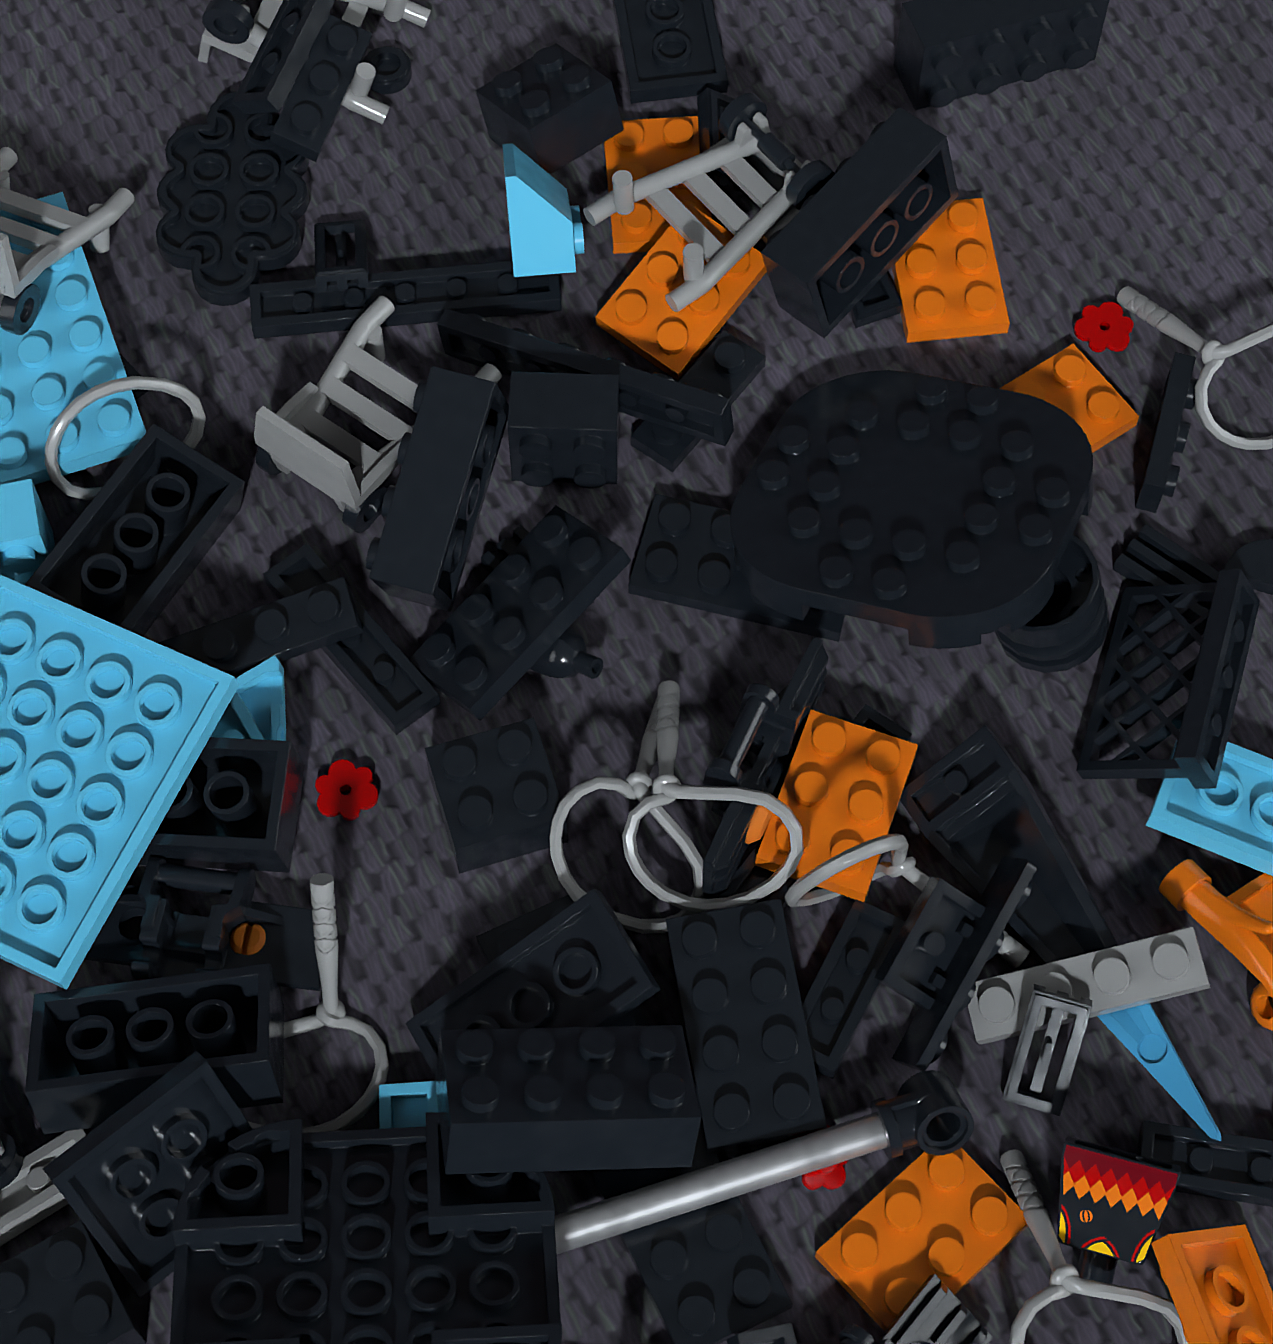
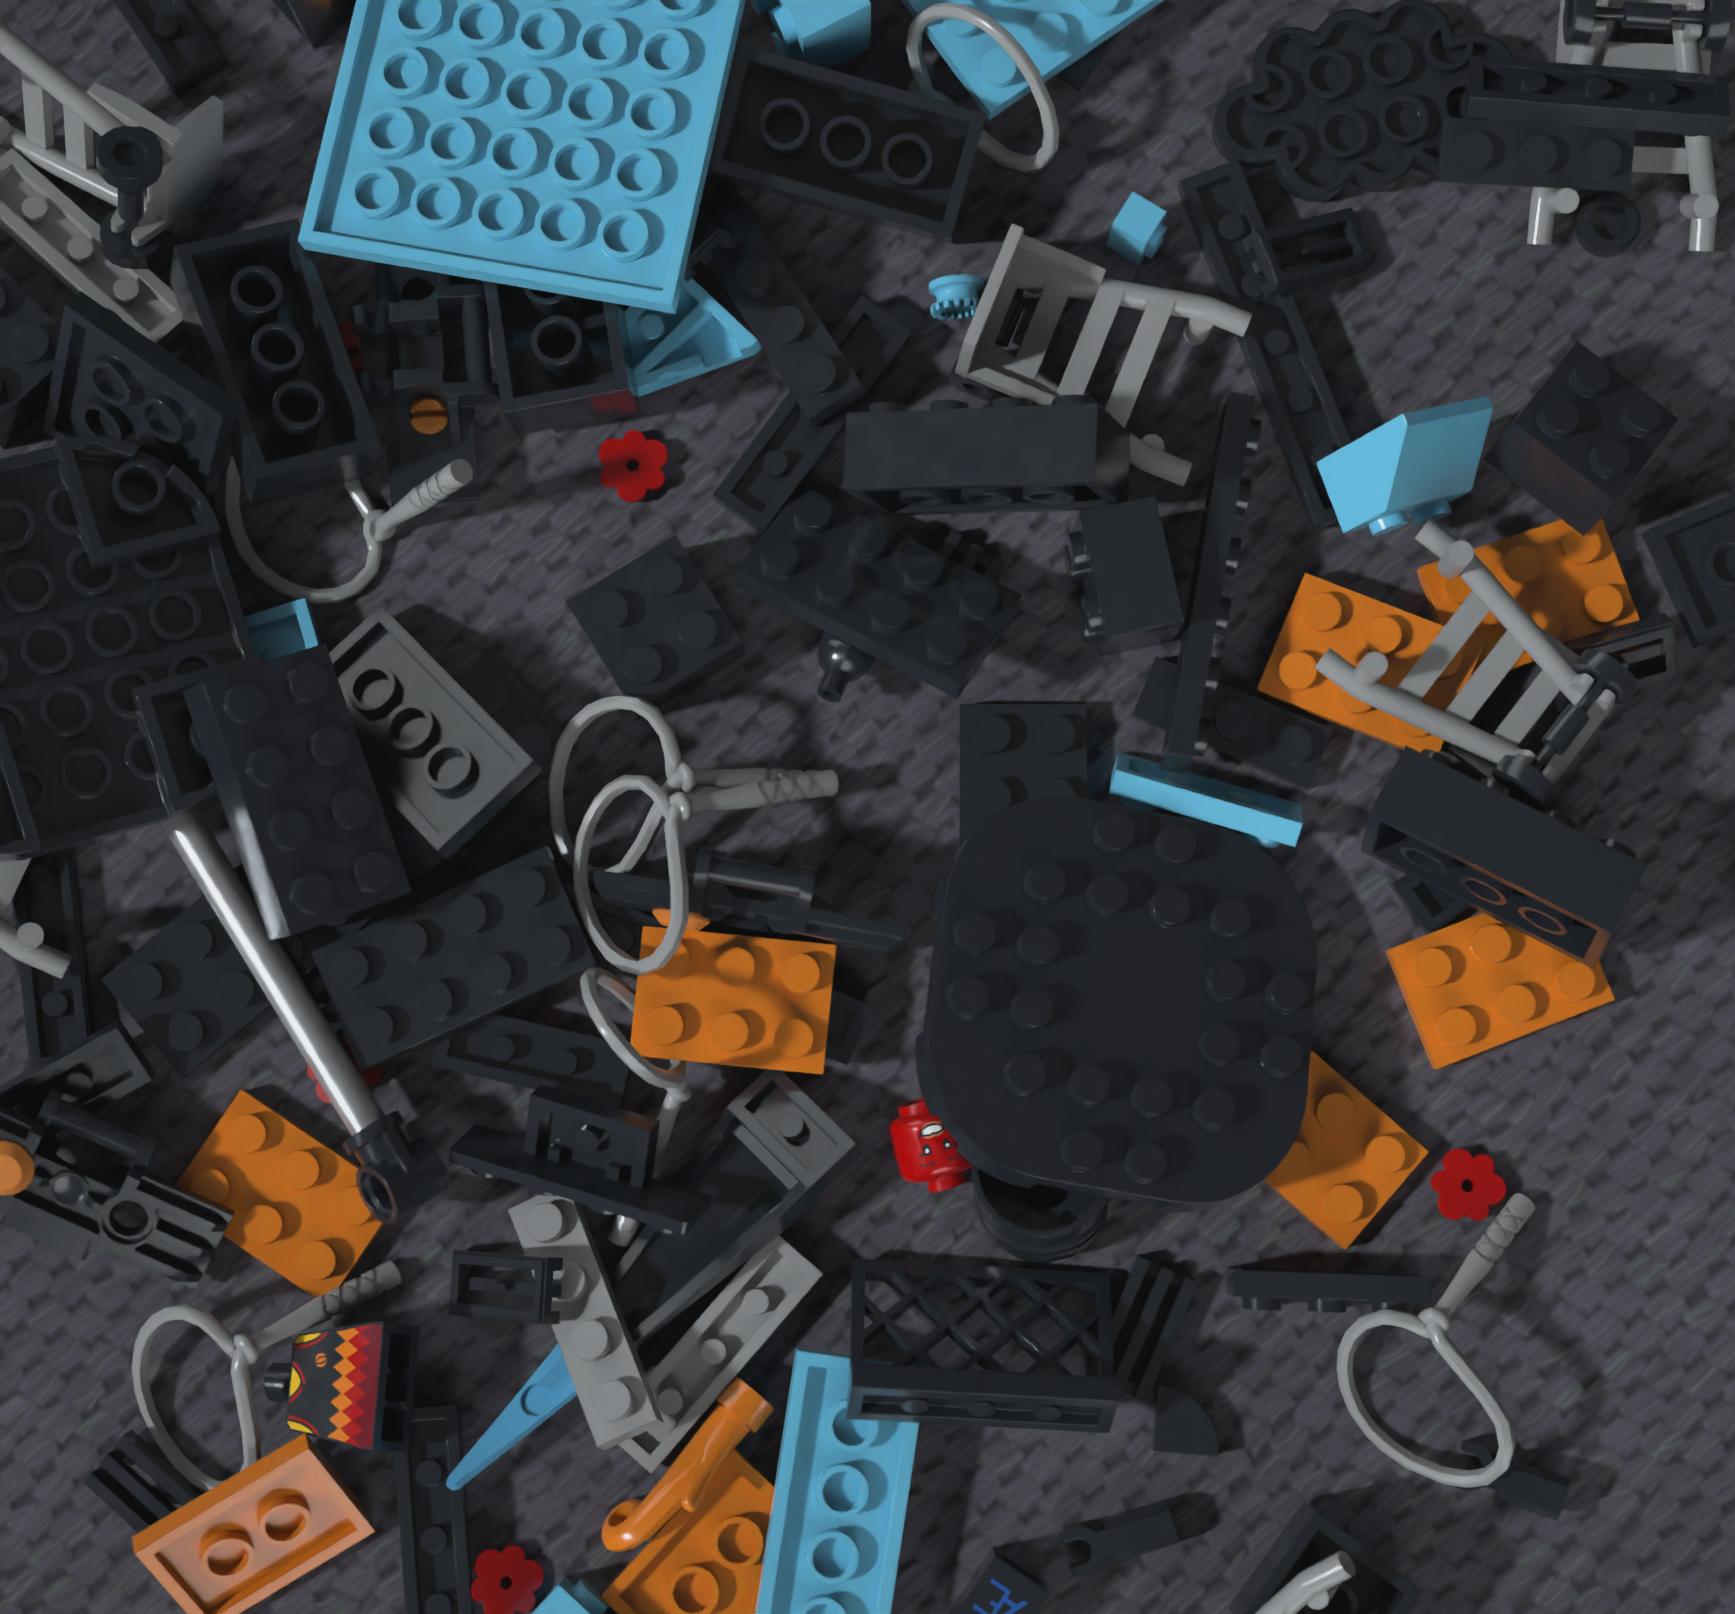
camera: 75 degrees right, 20 degrees up
(280, 363) = (1137, 229): none -> medium azure piece
(287, 507) = (955, 295): none -> medium azure bush
(757, 426) = (1258, 816): none -> medium azure plate
(991, 682) = (926, 1149): none -> red head
(1127, 887) = (722, 1344): none -> light grey plate

